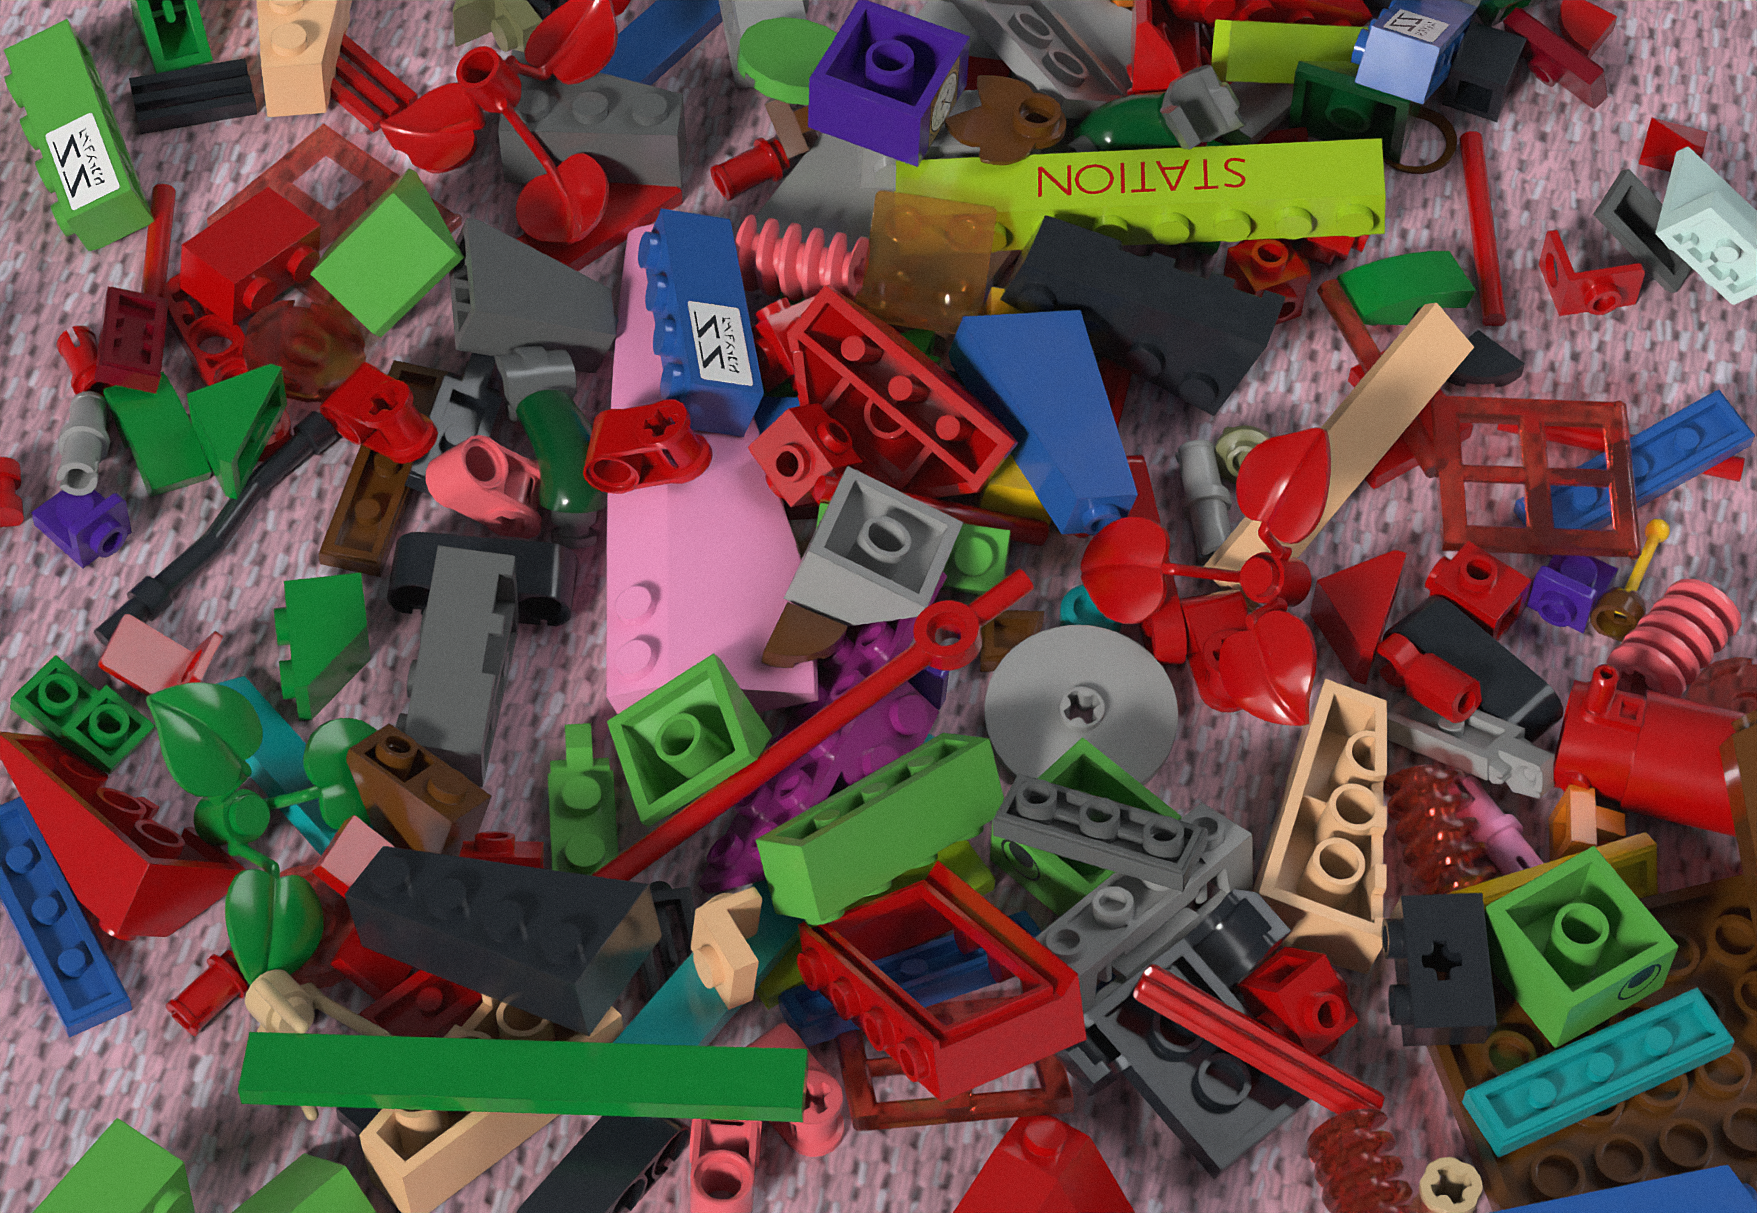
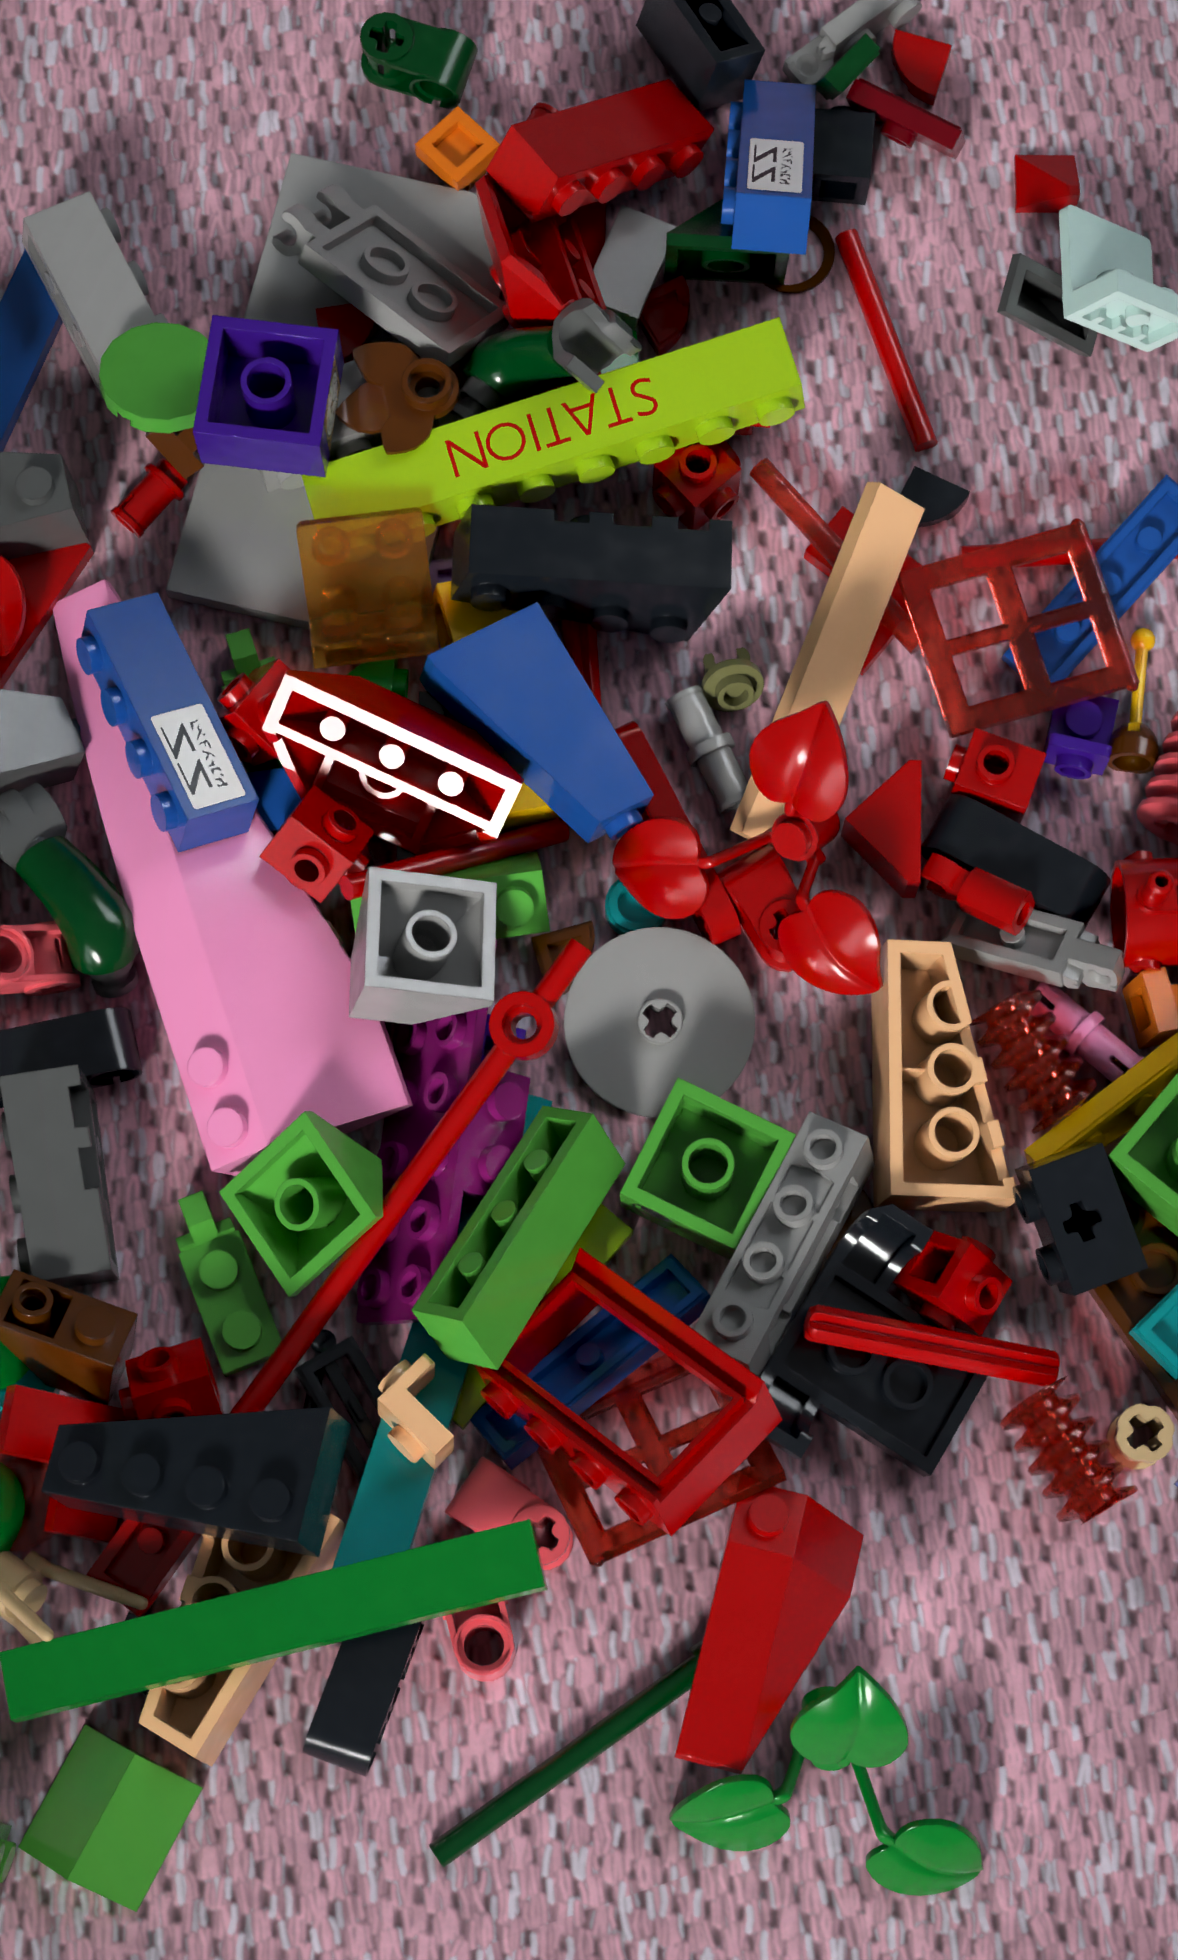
camera: 15 degrees left, 20 degrees up
(637, 447) = (161, 894): red piece -> none
(797, 266) = (239, 617): coral piece -> none
(802, 638) = (378, 1053): reddish brown tile -> none
(1100, 832) = (768, 1191): dark grey tile -> none
(1272, 49) = (639, 220): lime tile -> none
(1396, 286) = (830, 437): green slope -> none
(1587, 291) = (1015, 390): red bracket -> none

